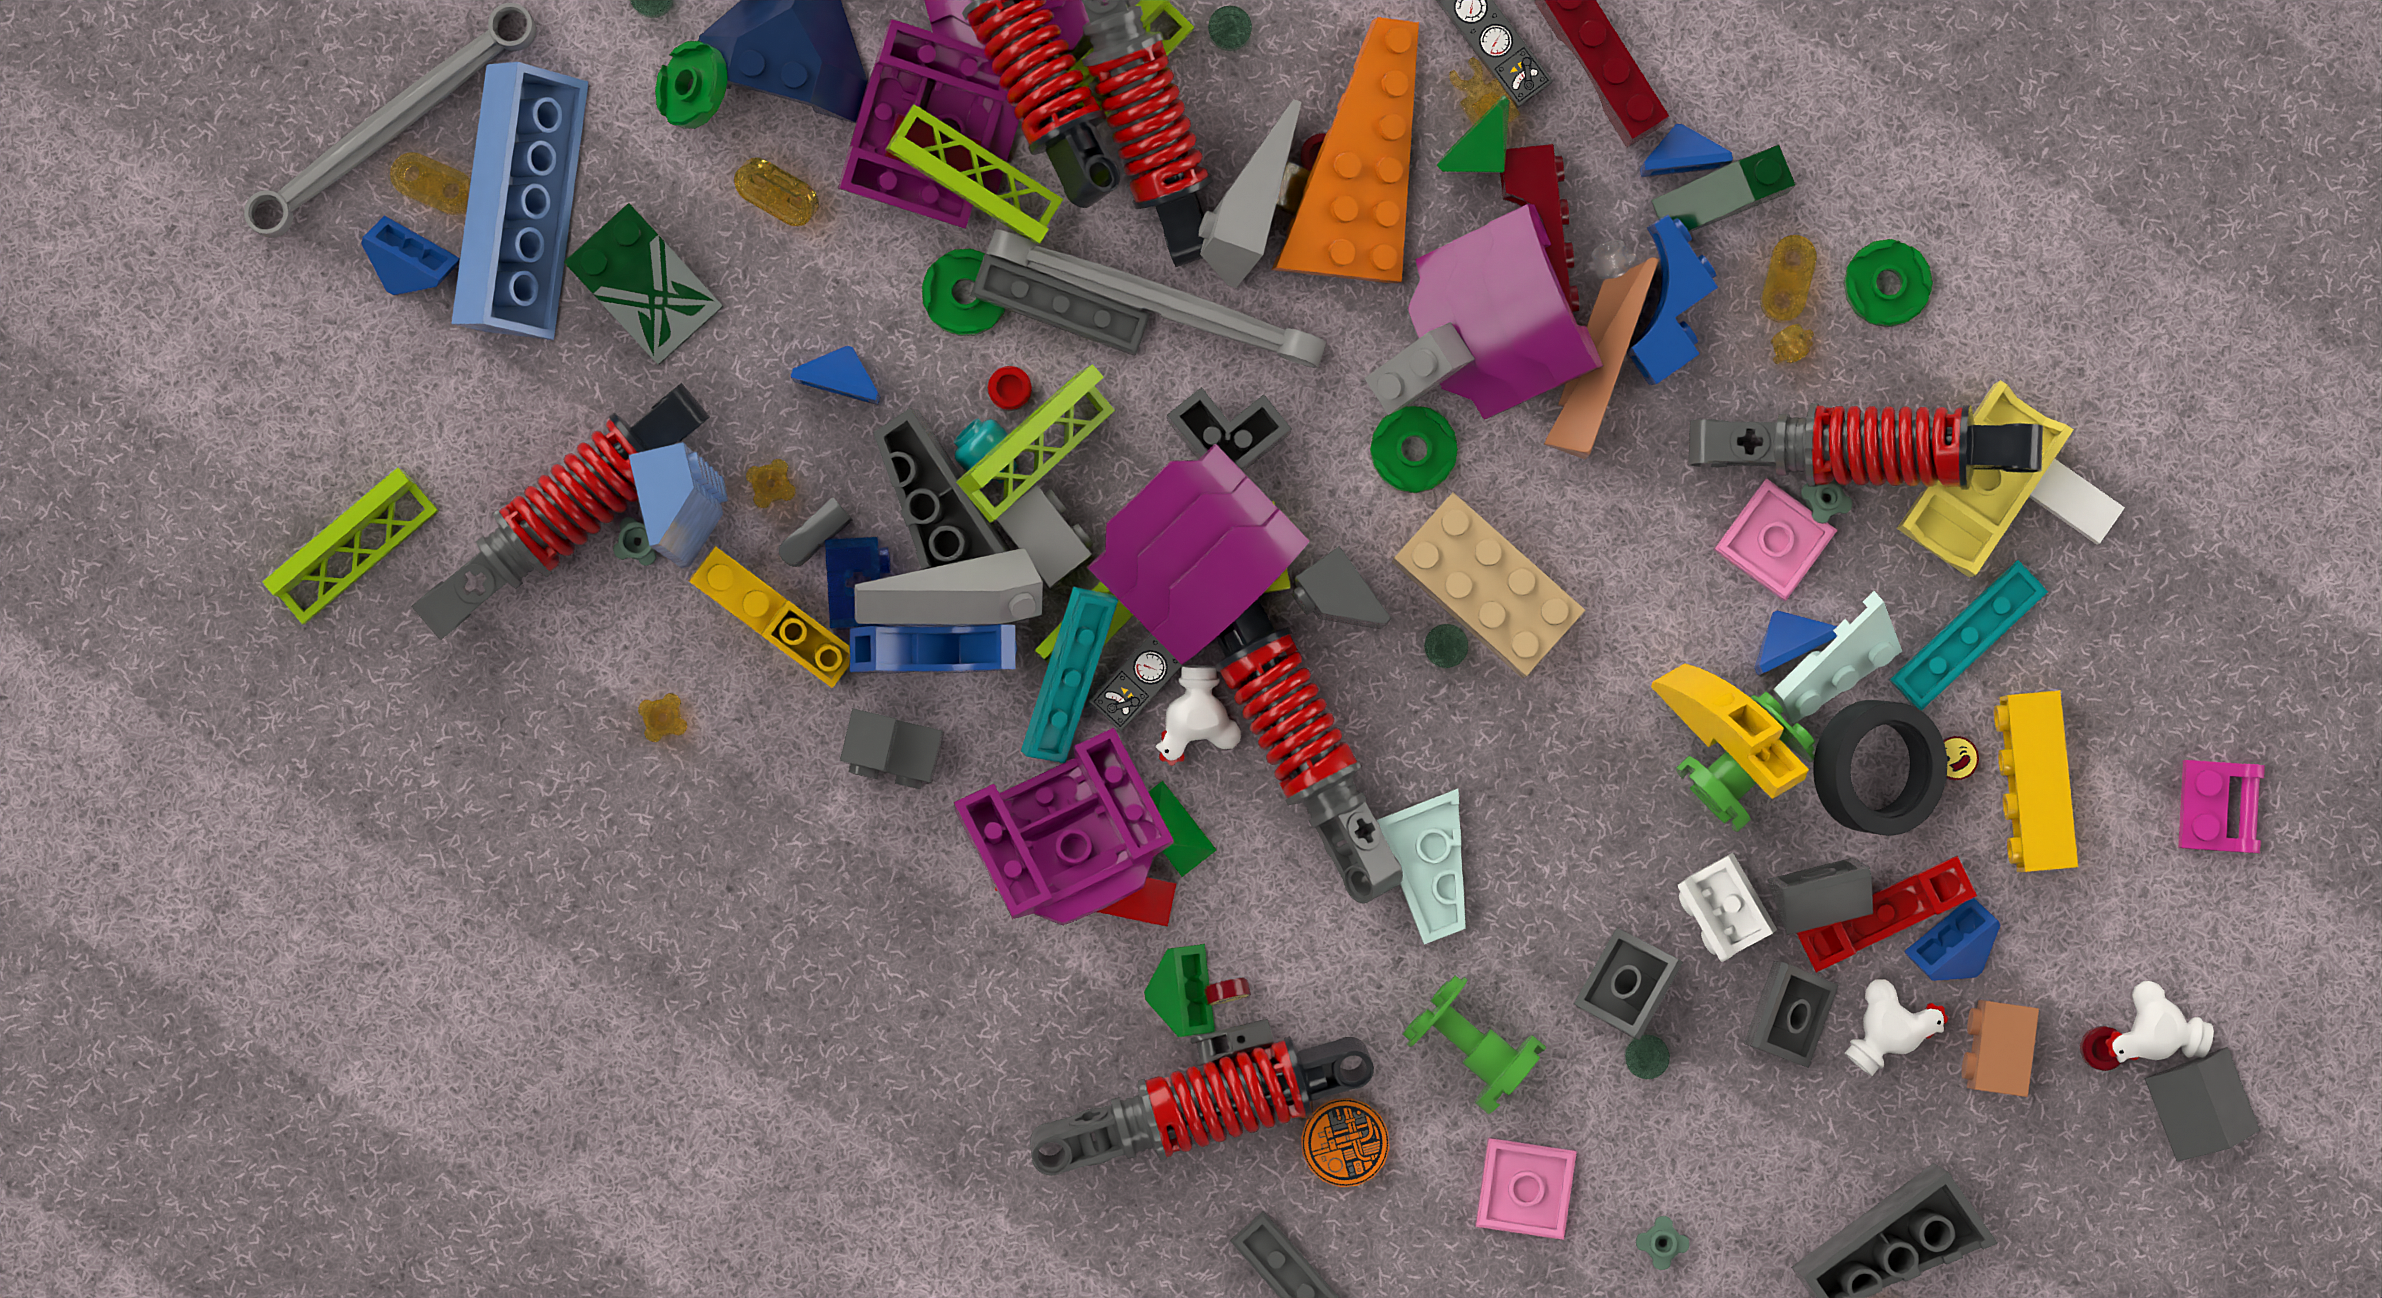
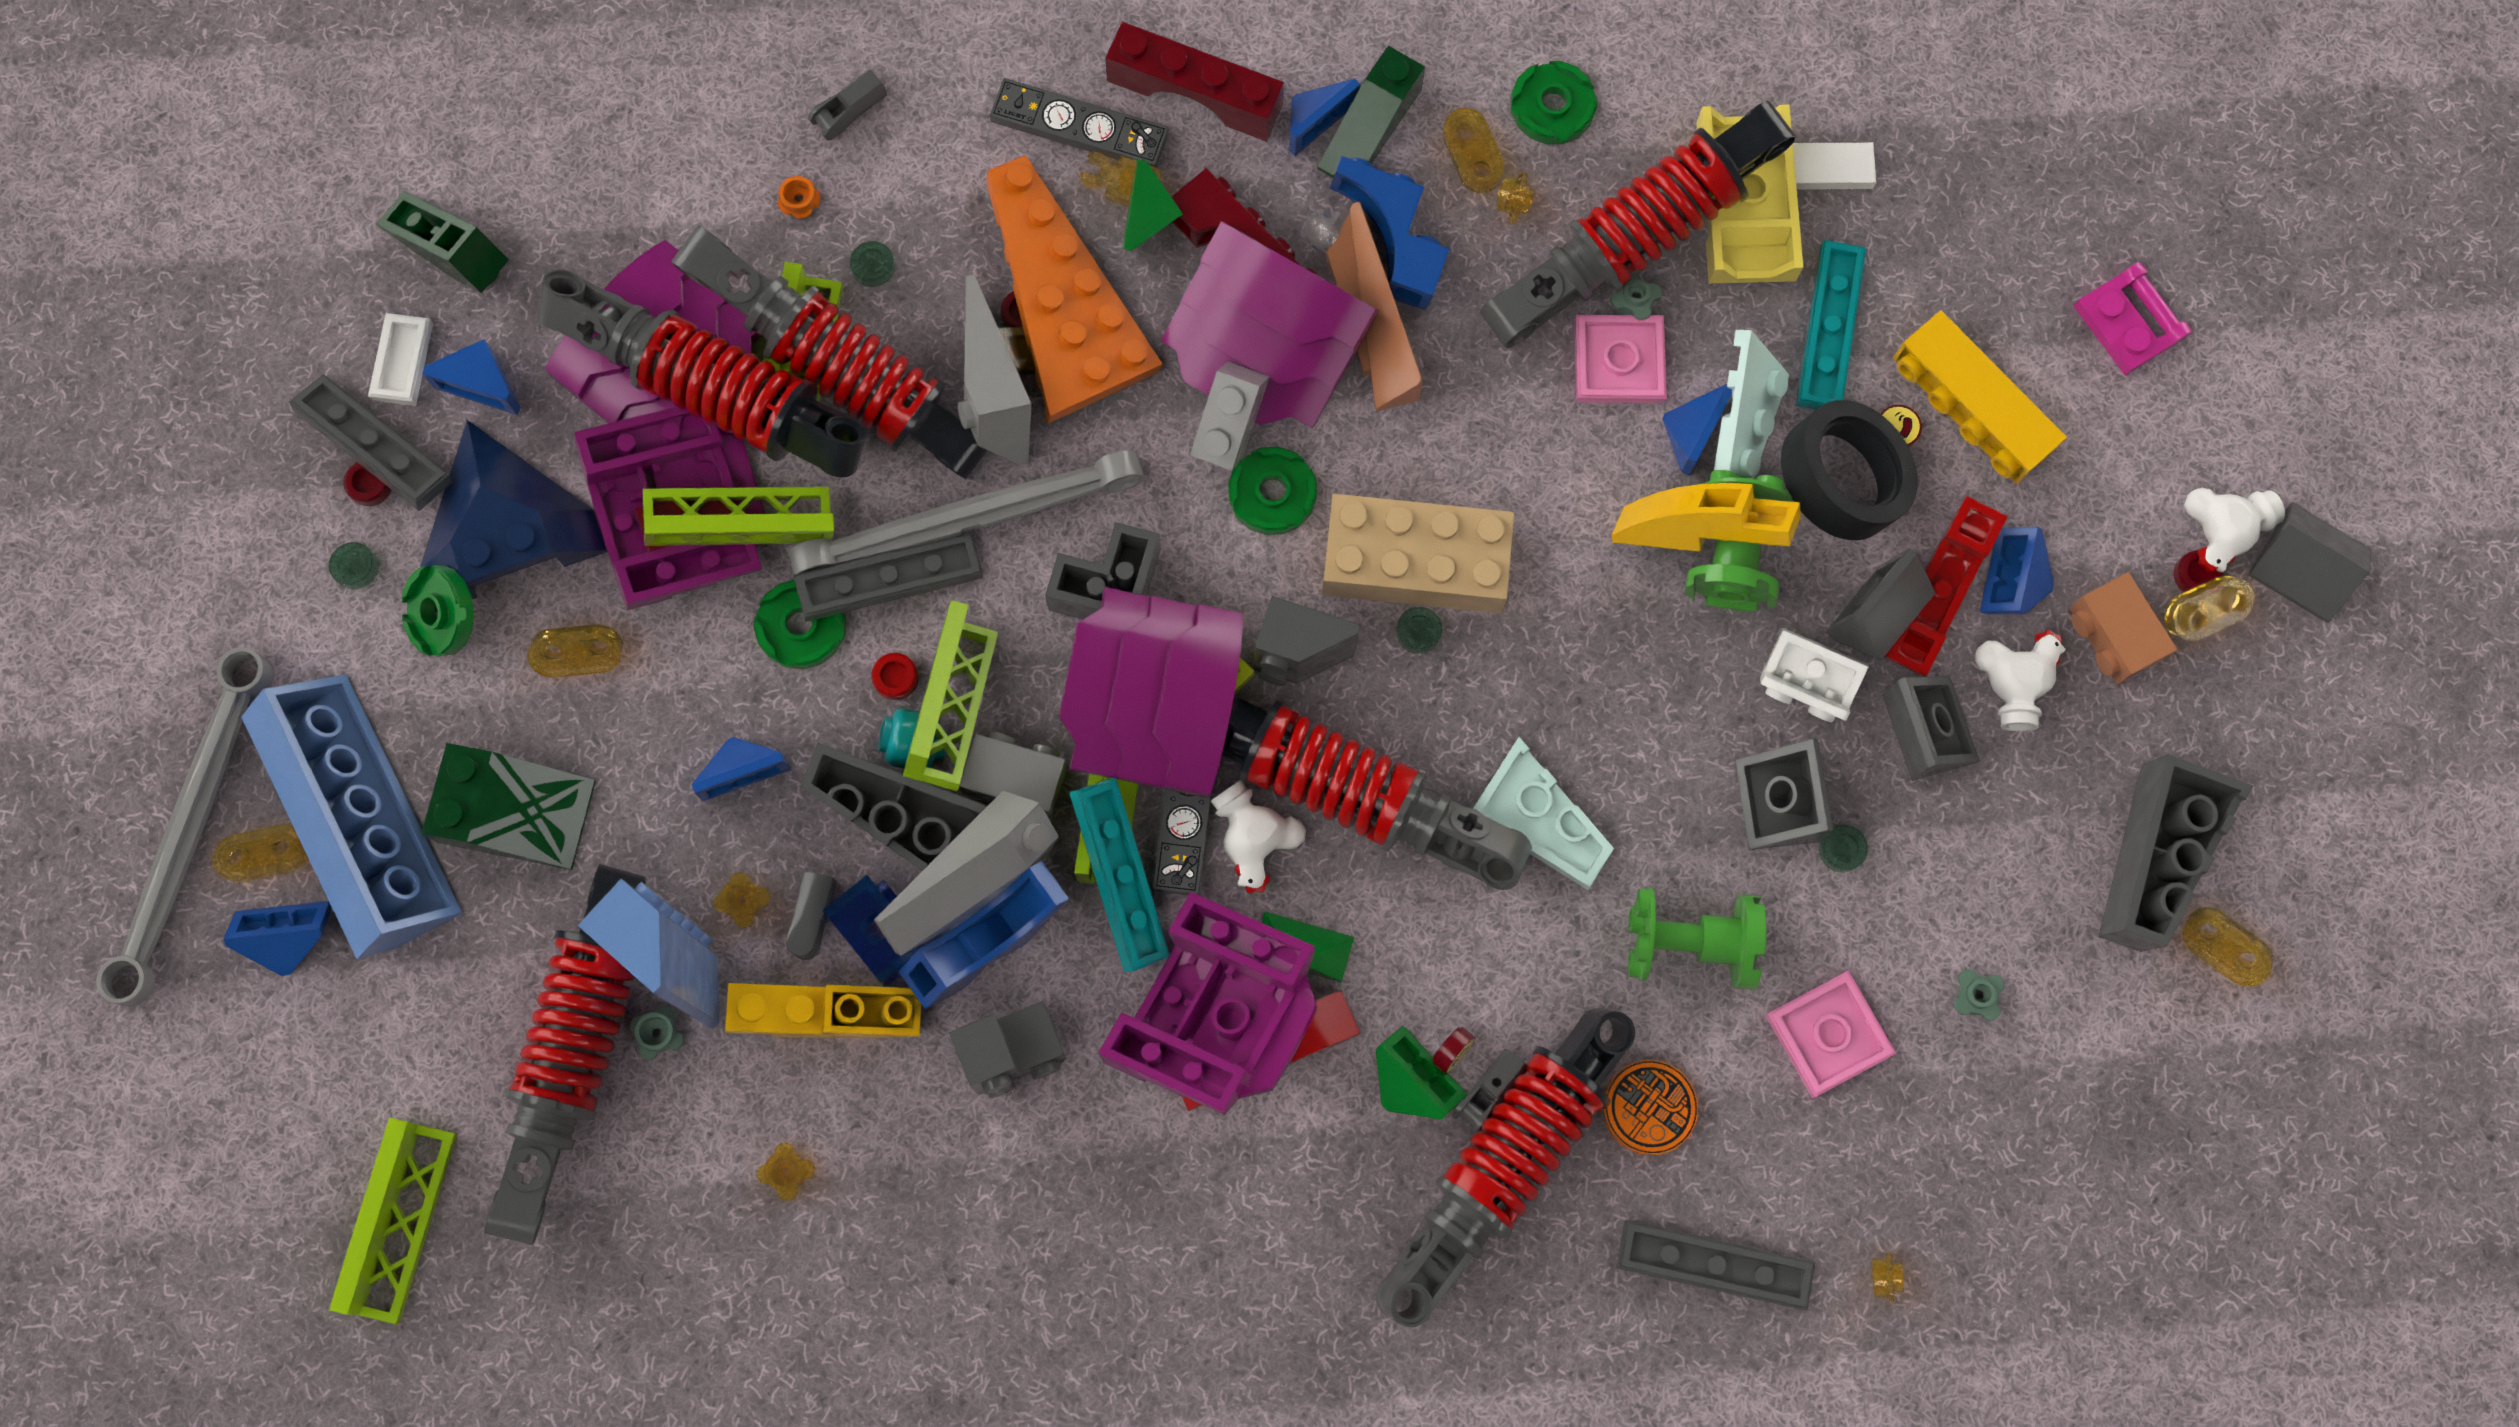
camera: 35 degrees left, 10 degrees down
(2089, 1082) = (2213, 606): none -> clear yellow plate

